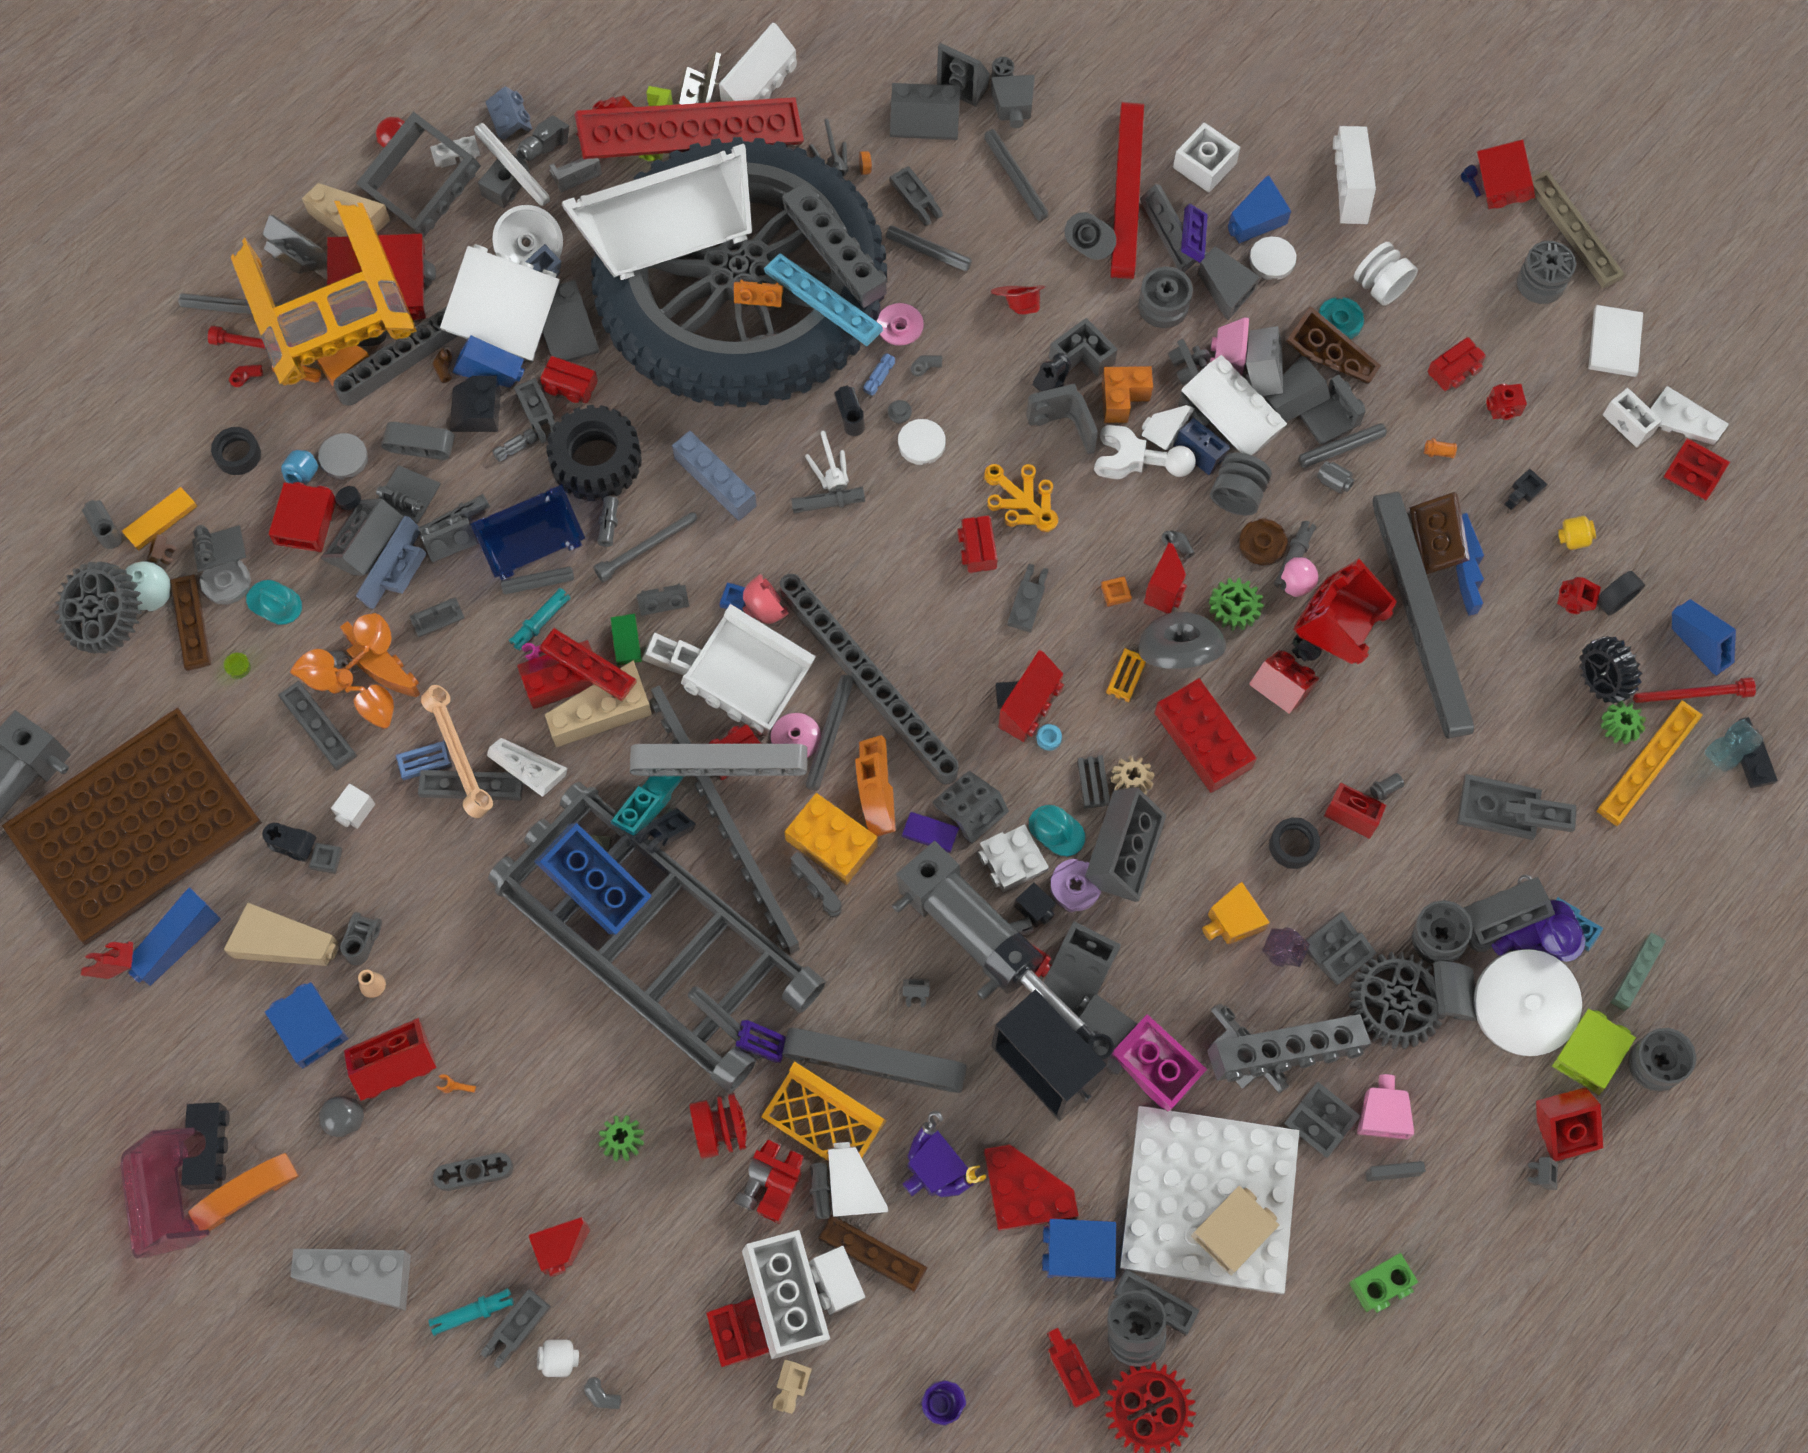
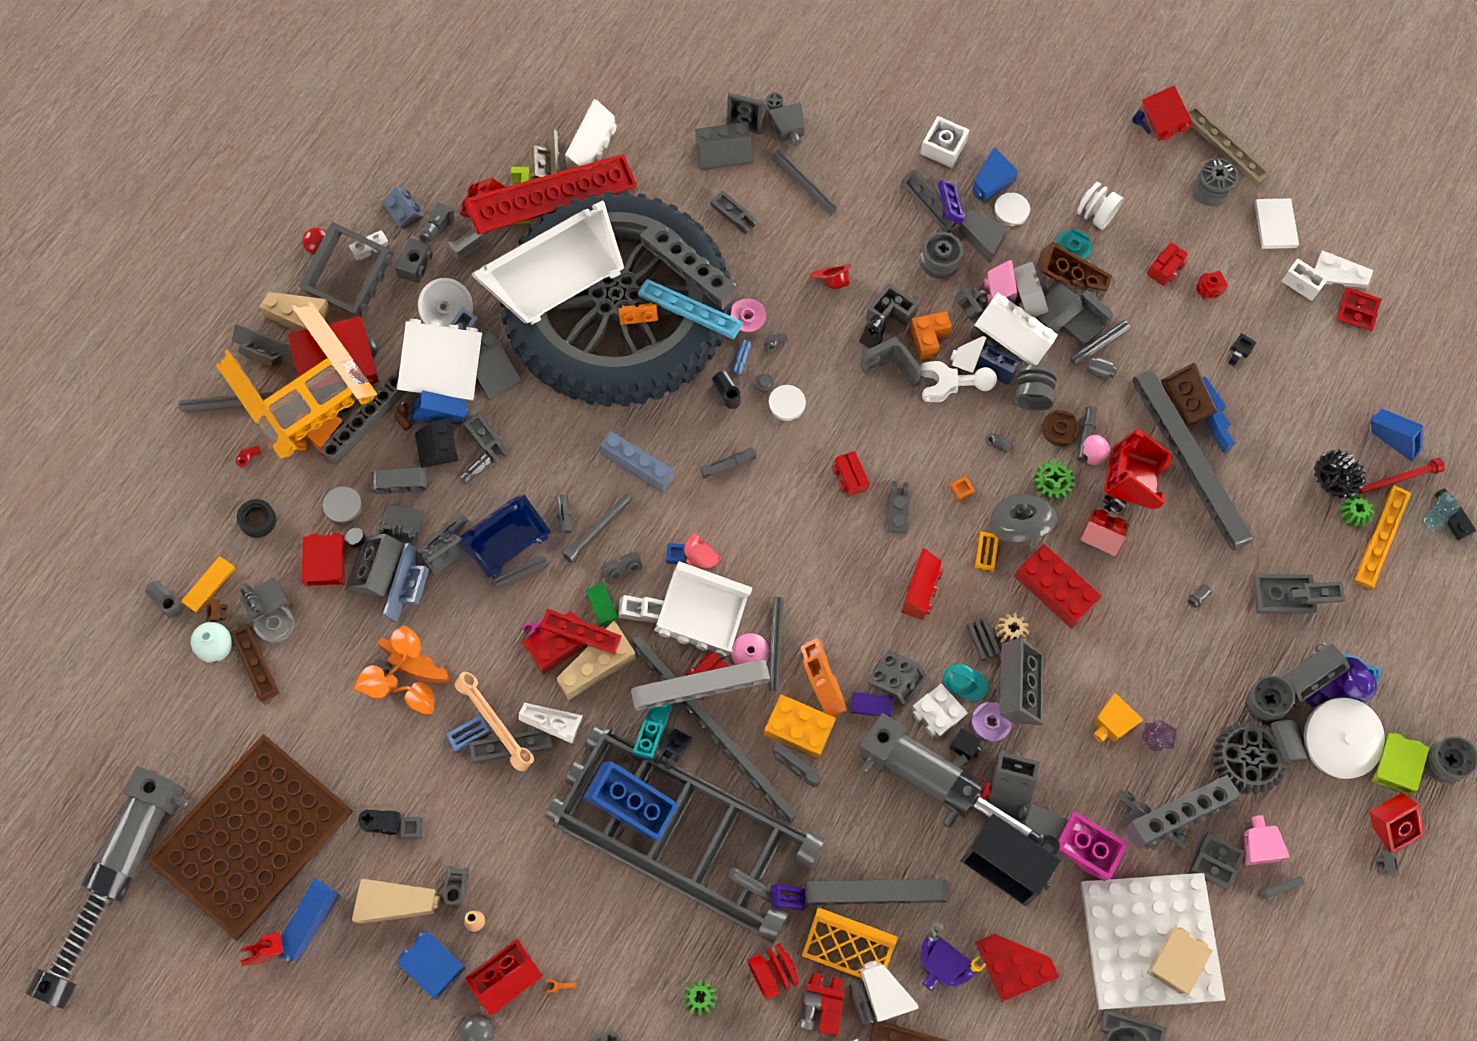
camera: 15 degrees left, 0 degrees up
(103, 613) = (188, 667): dark grey gear -> none
(218, 336) = (218, 429): red piece -> none
(237, 665) = (301, 689): clear neon green tile -> none
(274, 602) = (317, 632): teal piece -> none
(299, 467) = (310, 521): dark azure head -> none
(317, 725) = (377, 723): dark grey tile -> none
(352, 807) = (422, 783): white brick -> none
(437, 617) = (449, 617): dark grey hinge -> none
(512, 164) = (418, 248): white axle -> none
(539, 619) = (529, 604): teal pin -> none
(568, 380) = (504, 409): red brick -> none
(587, 426) = (534, 441): black tyre -> none
(834, 160) = (667, 198): dark grey plant -> none
(834, 477) = (729, 444): white plant -> none
(865, 162) = (688, 194): orange tile -> none
(871, 688) = (797, 603): dark grey beam -> none
(916, 988) = (893, 828): dark grey tile -> none
(928, 248) = (753, 251): dark grey axle -> none
(1003, 690) = (901, 584): black tile -> none
(1022, 500) = (874, 432): light orange plant -> none
(1049, 737) = (941, 611): medium azure tile -> none
(1080, 1249) = (1067, 1002): blue panel -> none
(1090, 236) = (874, 219): dark grey piece -> none
(1127, 190) = (891, 178): red beam -> none
(1167, 583) = (1001, 474): red slope -> none
(1294, 824) = (1135, 665): black tyre -> none
(1339, 948) = (1196, 727): dark grey slope -> none
(1354, 174) = (1056, 133): white wedge -> none
(1355, 810) = (1181, 619): red slope -> none
(1381, 1278) = (1292, 970): bright green brick -> none
(1438, 448) = (1173, 330): orange pin -> none
(1577, 532) = (1287, 374): yellow head -> none
(1578, 595) = (1301, 422): red brick -> none
(1620, 592) = (1330, 414): black tyre -> none
(1638, 971) = (1415, 696): sand green piece -> none

